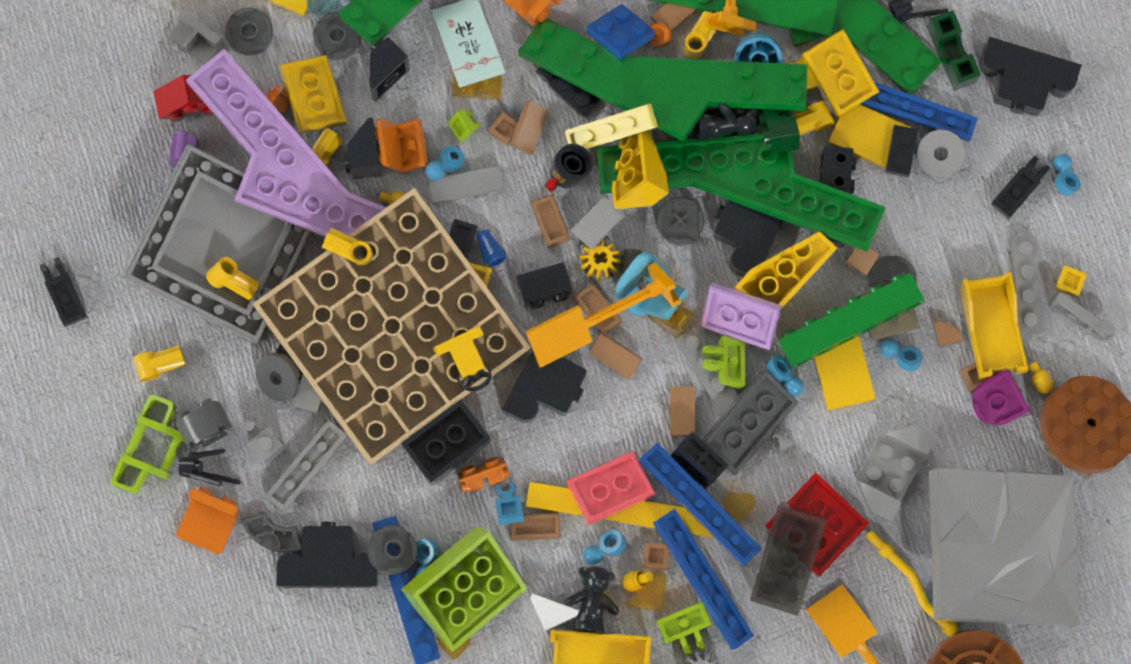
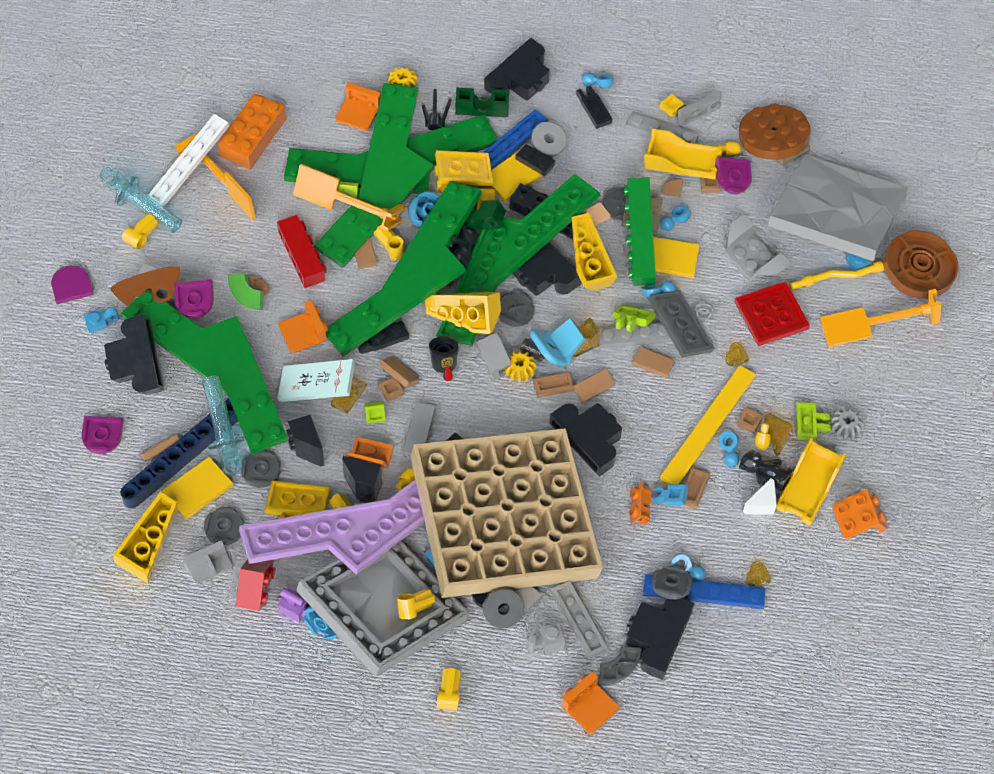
camera: 60 degrees left, 20 degrees down
(64, 294) = (359, 738): black hinge -> none
(143, 423) = (513, 744): lime bar -> none
(193, 468) = (543, 698): black plant -> none
(204, 424) = (516, 673): dark grey brick -> none
(345, 246) = (436, 502): yellow piece -> none
(436, 170) = (396, 431): dark azure plate -> none
(446, 442) = (609, 515): black brick -> none
(464, 588) = (720, 546): lime slope -> none
(466, 359) = (554, 463): yellow piece -> none
(491, 250) = (475, 431): blue cone -> none
(544, 285) = (520, 408): black hinge -> none
(550, 221) = (473, 388): medium nougat tile -> none
(570, 329) = (566, 397): light orange piece -> none
(610, 488) = (689, 426): coral tile -> none
(613, 127) = (430, 314): light yellow tile -> none
(620, 31) = (361, 285): blue plate -> none
(662, 34) = (375, 266): orange tile -> none
(699, 460) = (695, 362): black hinge -> none
(700, 504) = (726, 374): blue plate -> none
(703, 579) = (781, 394): blue plate -> none
(741, 316) = (605, 293): lavender tile -> none
(789, 558) = (791, 332): clear smoke brick -> none

